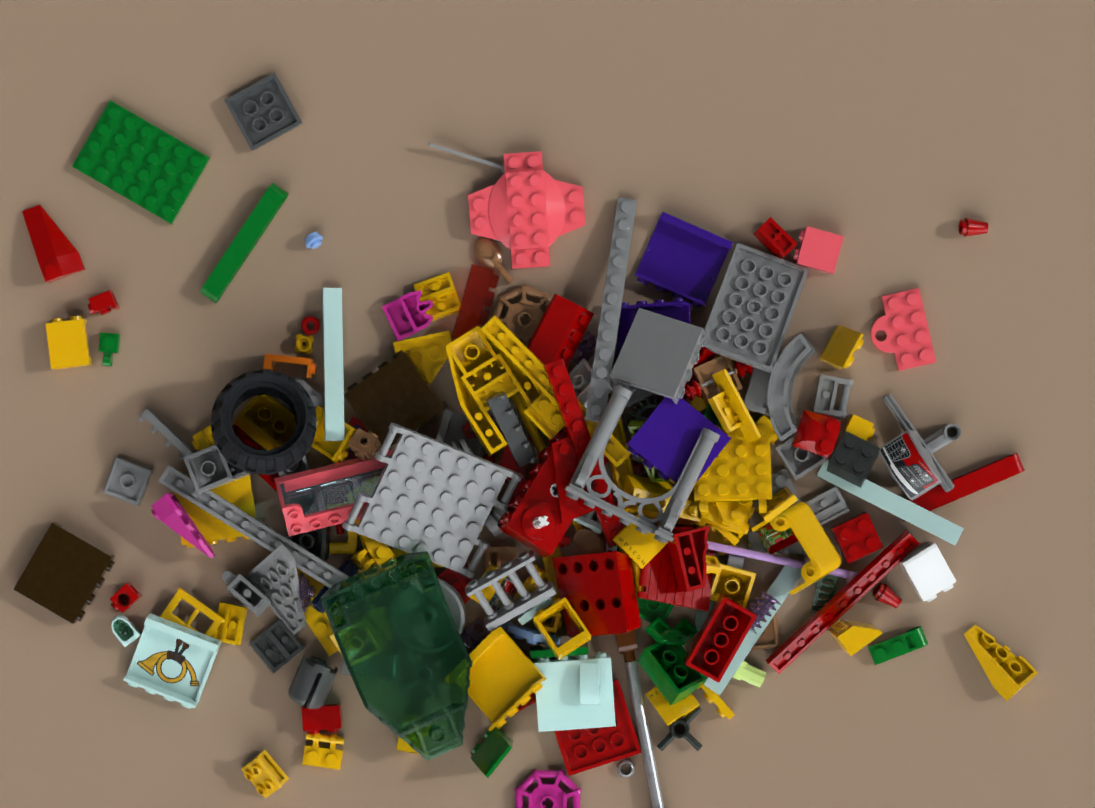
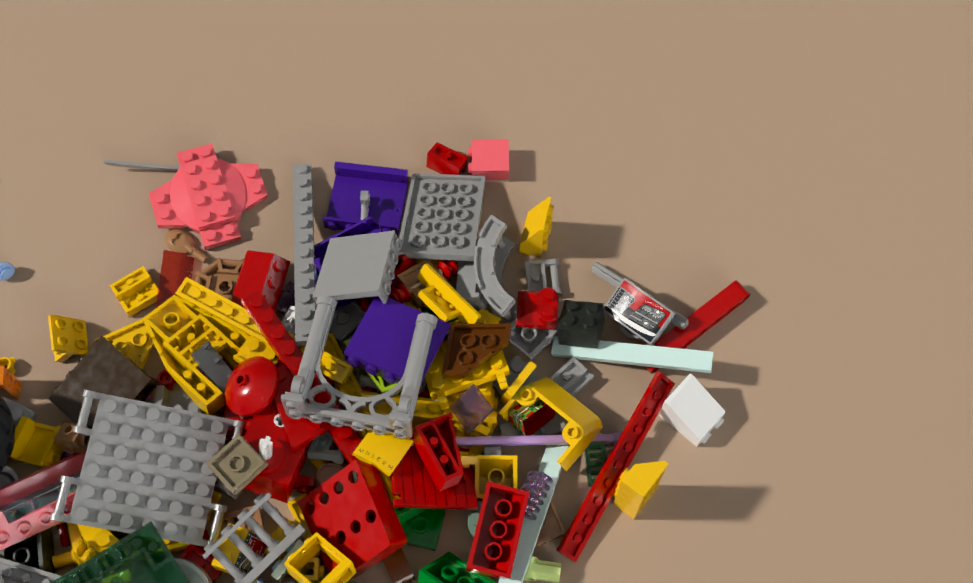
camera: 15 degrees left, 25 degrees down
(305, 321) = (6, 344): red plate -> none
(333, 364) = (34, 376): light aqua tile -> none
(367, 333) = (67, 337): none -> yellow bracket
(408, 314) = (107, 310): dark pink plate -> none
(448, 399) = (163, 375): none -> red plate
(466, 430) = (184, 402): red plate -> none
(512, 528) = (237, 464): none -> dark tan tile
(546, 452) = (251, 386): none -> red dish
(664, 634) = (438, 551): green tile -> none
(679, 270) = (365, 203): none -> light grey bar
(727, 524) = (471, 408): none -> piece
(745, 465) = (472, 346): none -> reddish brown plate
(856, 537) = (610, 398): red brick -> none
(859, 427) = (578, 293): yellow brick -> none
(885, 595) = (660, 449): red cone -> none
(898, 645) = (690, 496): green plate -> none
(904, 330) = (591, 207): coral plate -> none
(940, 438) = (660, 286): light grey piece -> none
(972, 227) = (622, 110): red cone -> none
(1004, 670) = (811, 492): yellow wedge -> none

